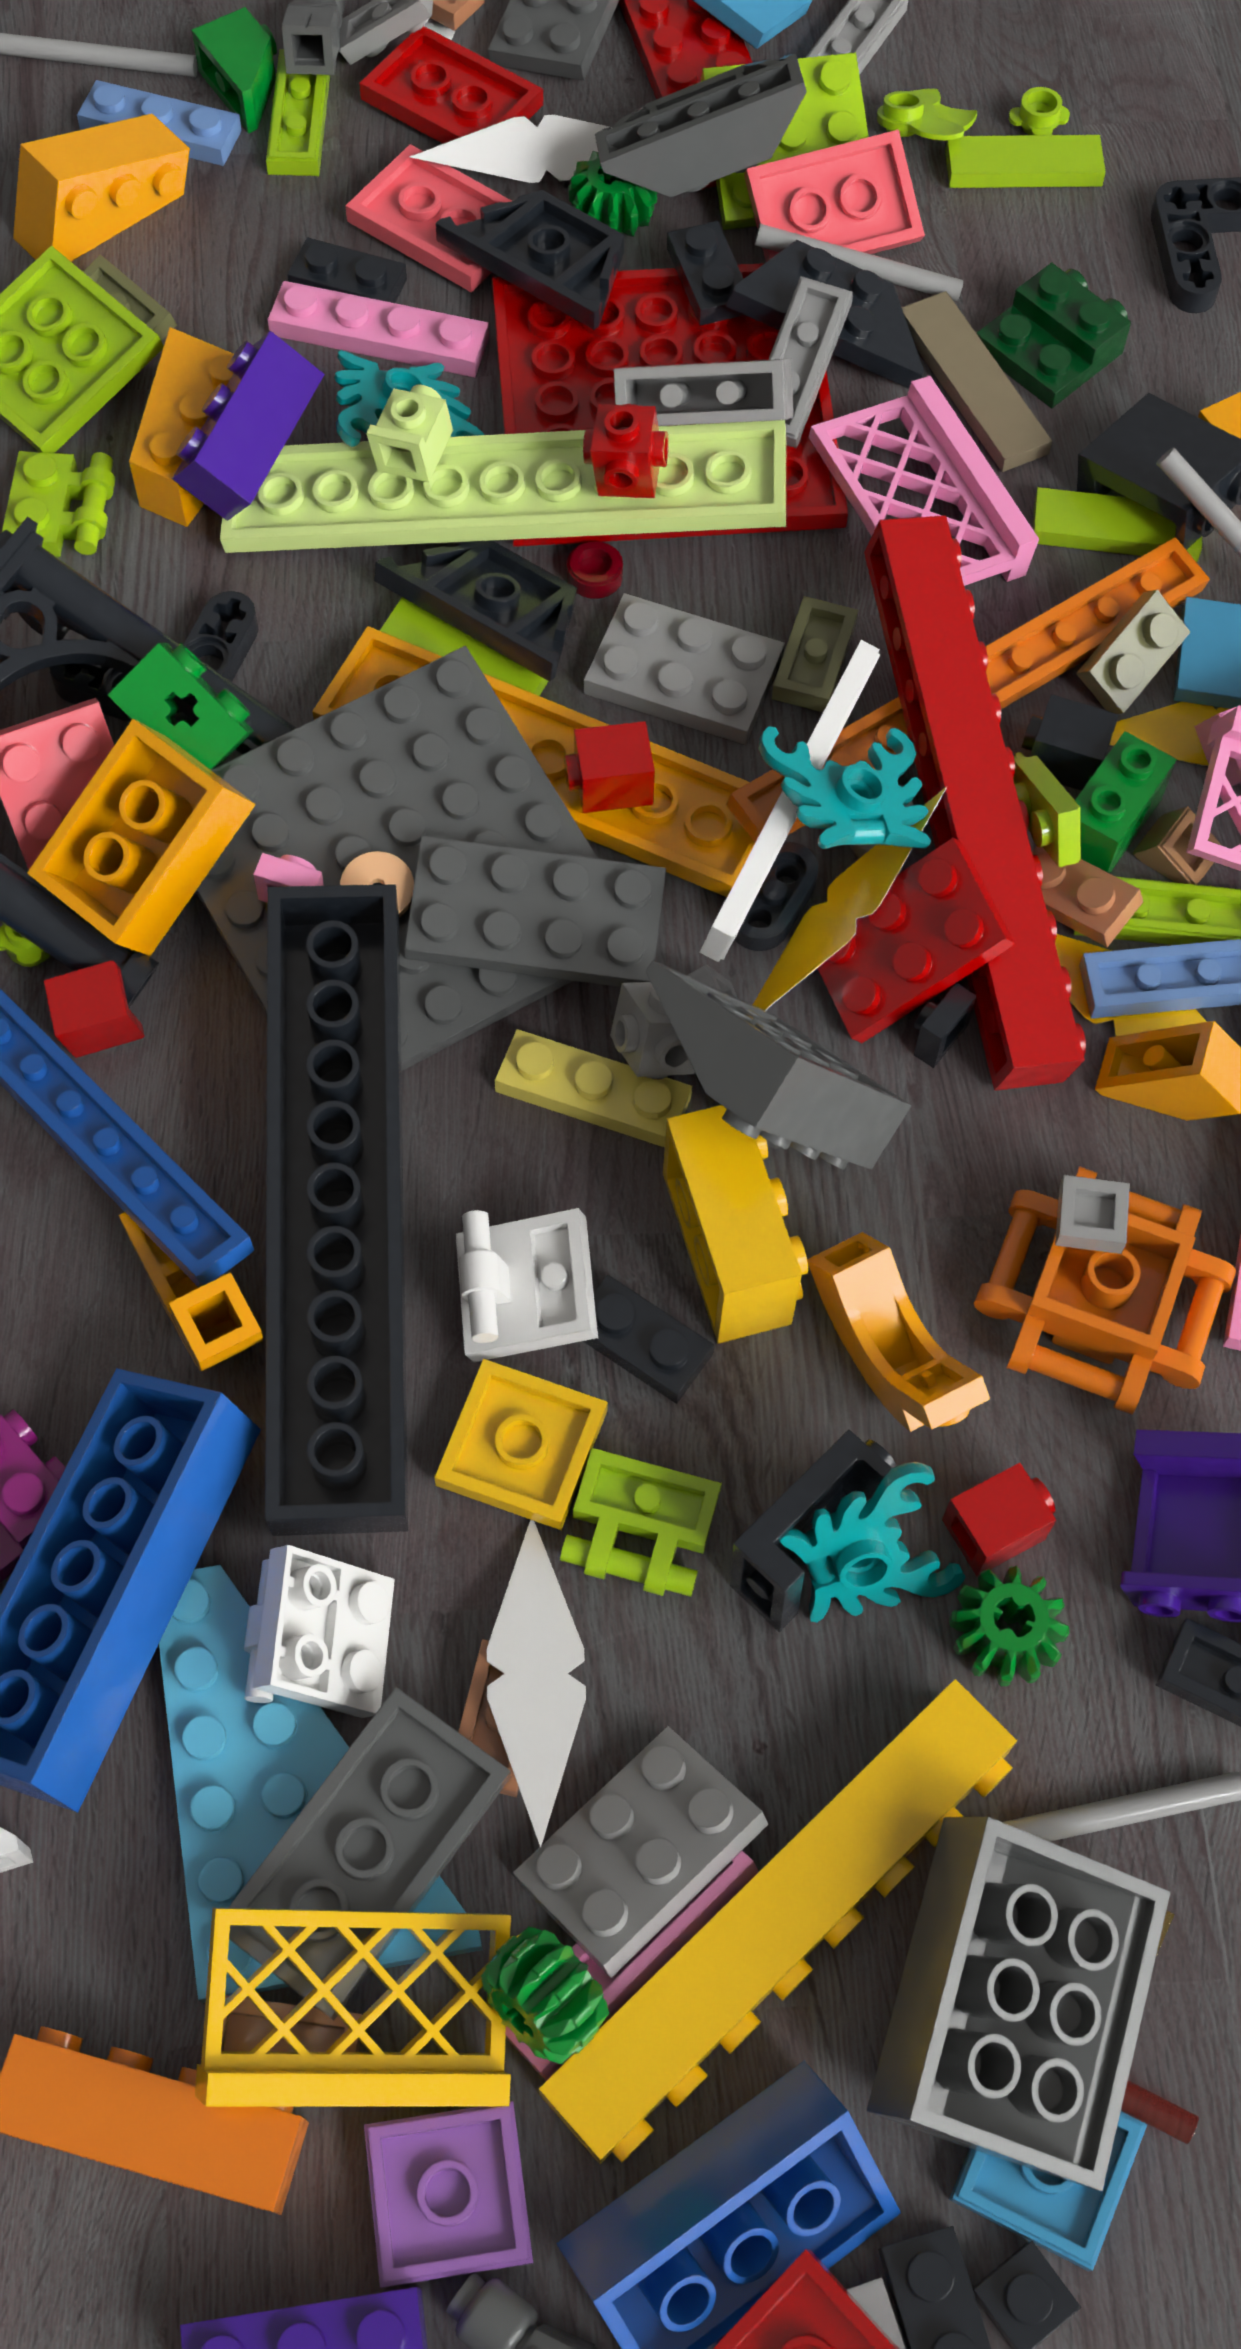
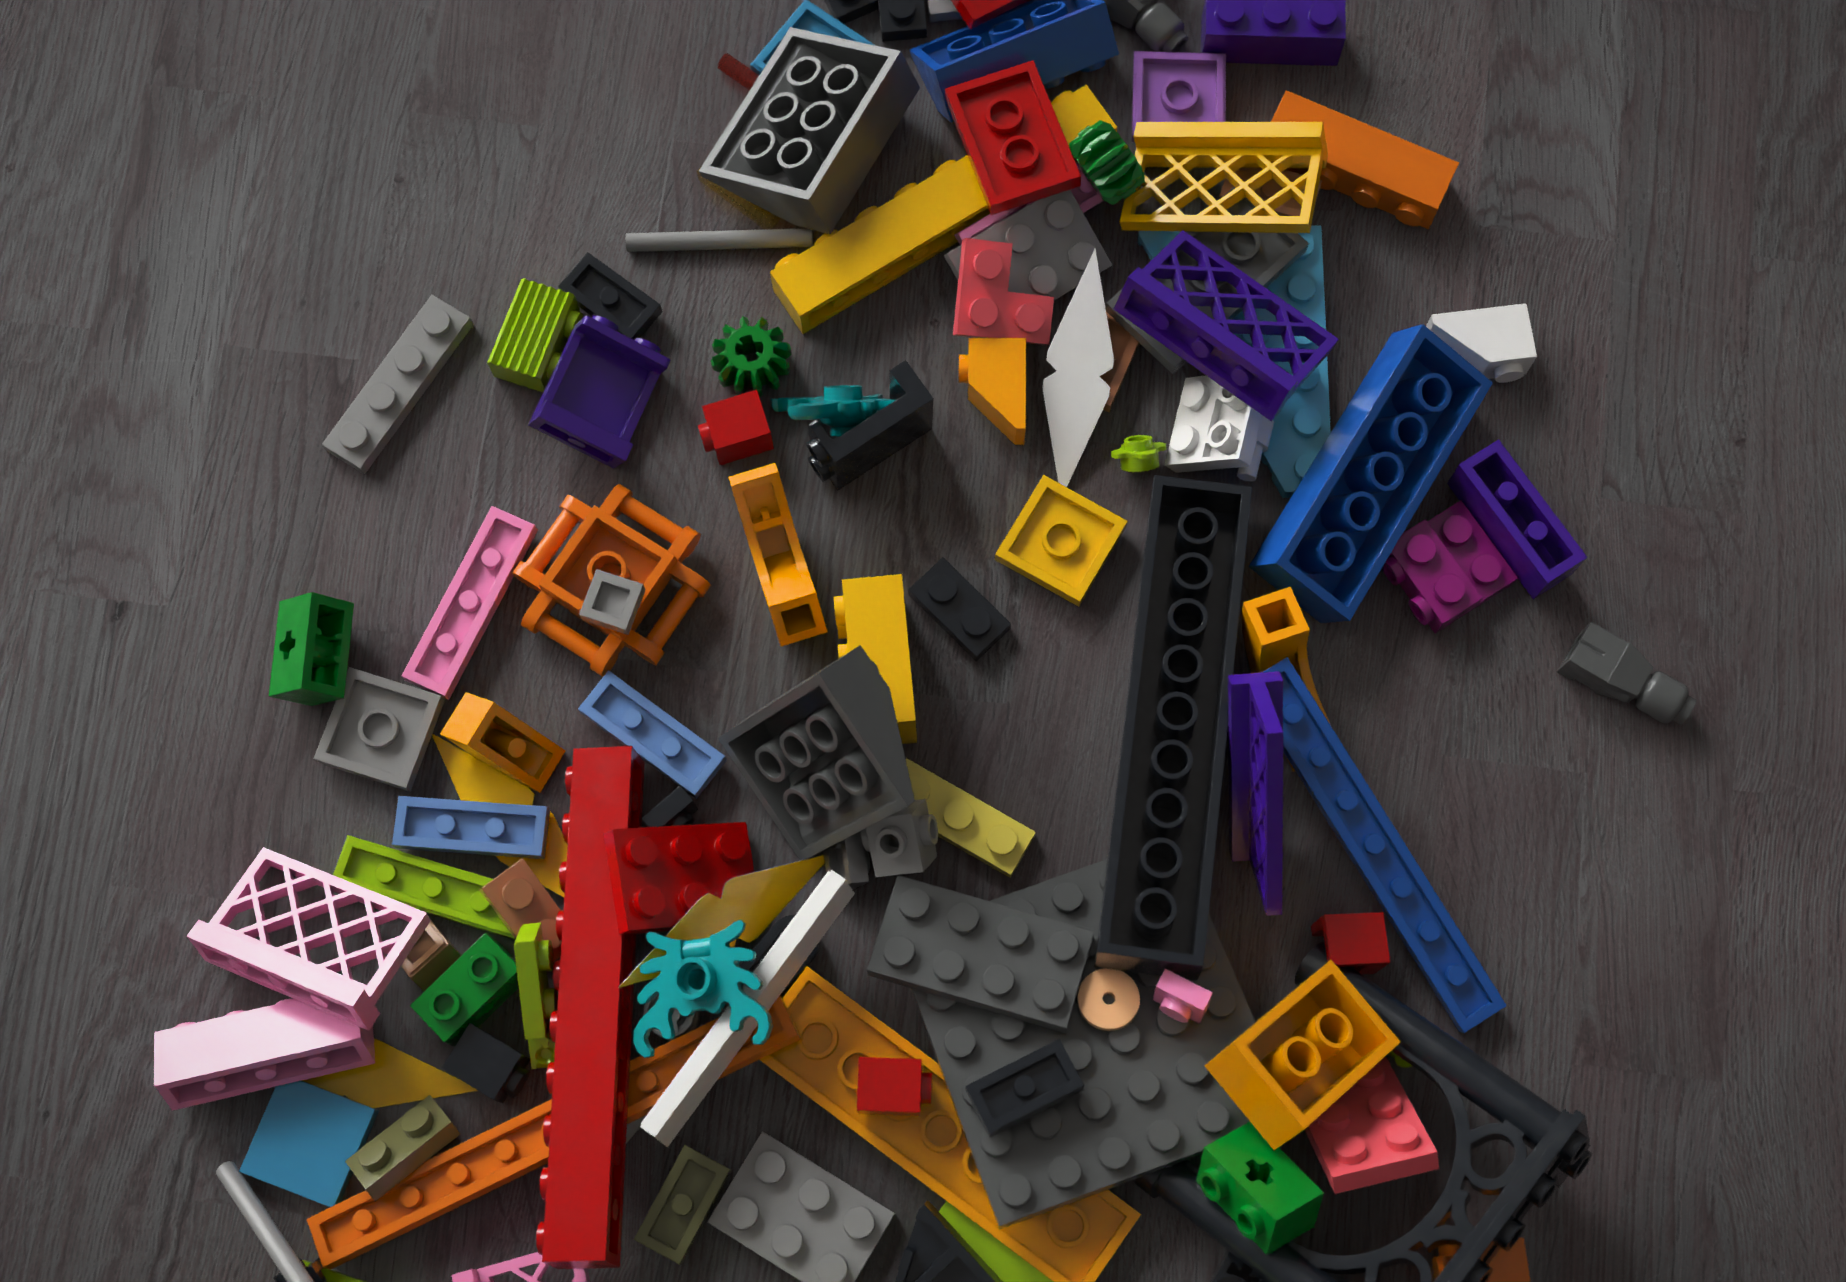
camera: 165 degrees left, 10 degrees up
(220, 1125) = (1257, 779): none -> dark purple fence
(337, 1683) = (1211, 342): none -> dark purple fence
(432, 1581) = (1139, 453): none -> lime plate
(459, 765) = (1024, 1088): none -> black plate
(524, 1284) = (1040, 651): white plate -> none
(644, 1502) = (980, 484): lime plate -> none
(649, 1649) = (997, 382): none -> light orange slope
(684, 1744) = (983, 299): none -> coral plate
(702, 2019) = (1012, 137): none -> red plate
(995, 1114) = (653, 734): none -> medium blue plate

